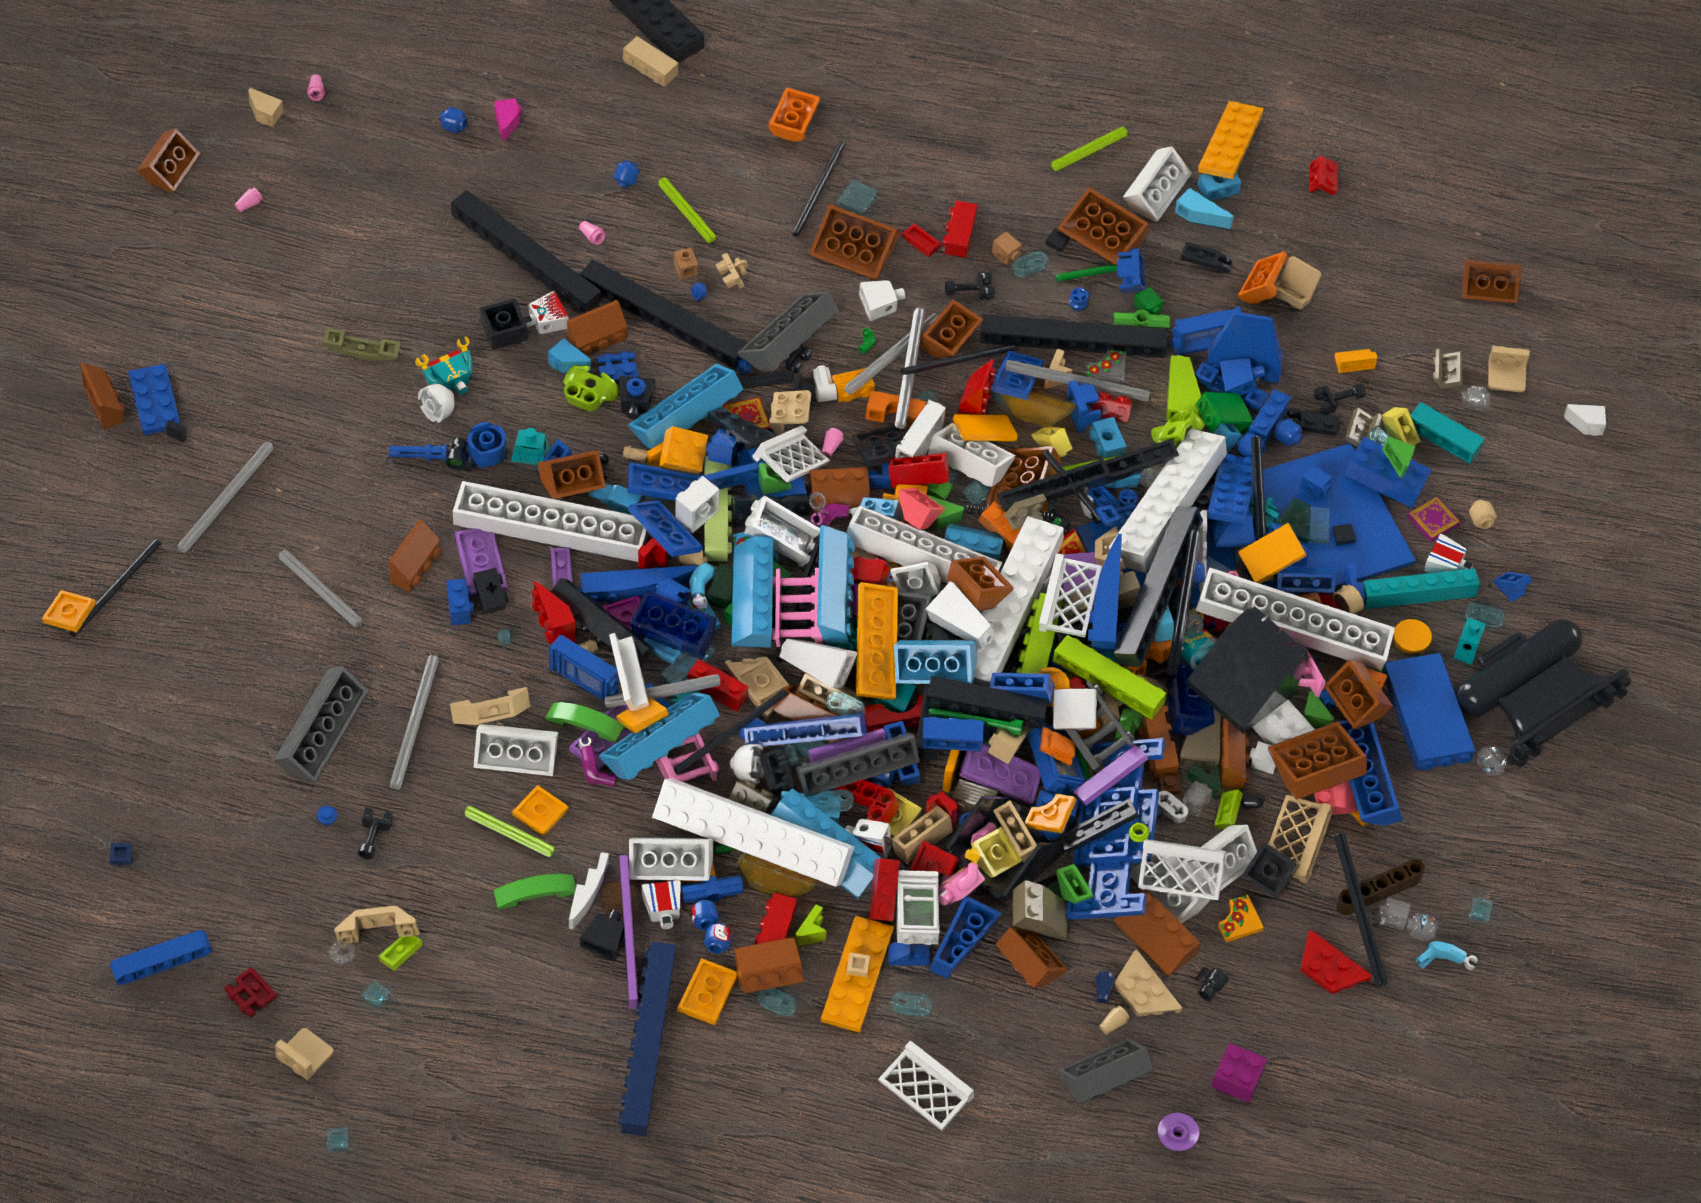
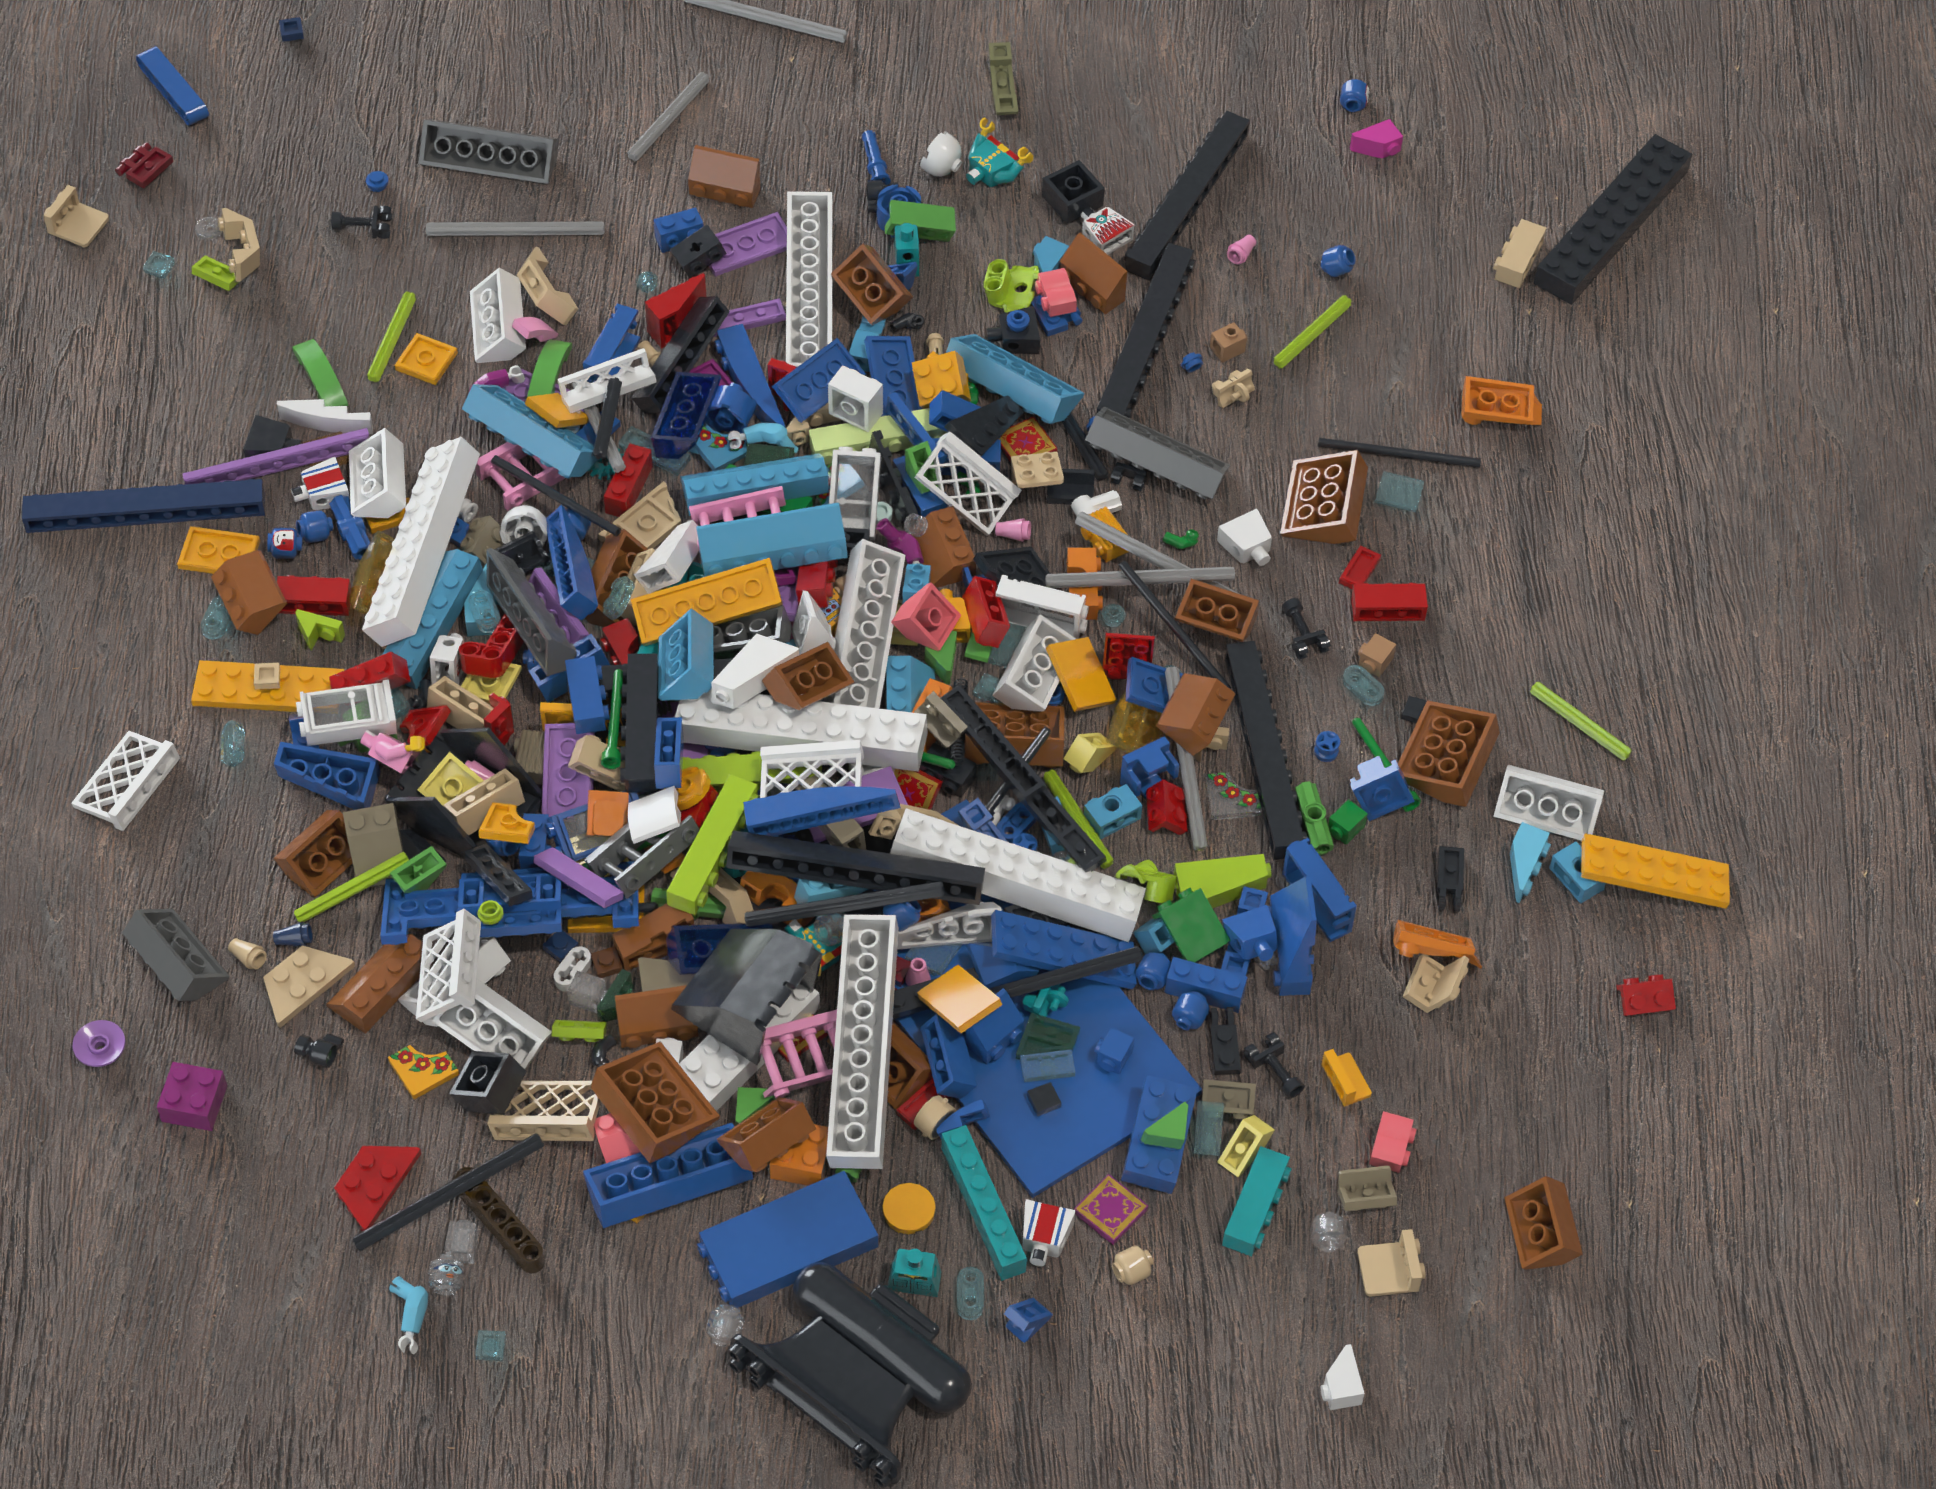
camera: 80 degrees right, 0 degrees up
(508, 428) = (932, 221): none -> bright green panel
(540, 721) = (534, 327): none -> bright pink slope
(611, 356) = (1056, 292): none -> coral brick
(670, 676) = (607, 418): none -> black axle
(1051, 357) = (1195, 711): none -> dark orange slope
(1073, 937) = (350, 888): none -> lime axle
(1413, 346) = (1392, 1141): none -> coral brick

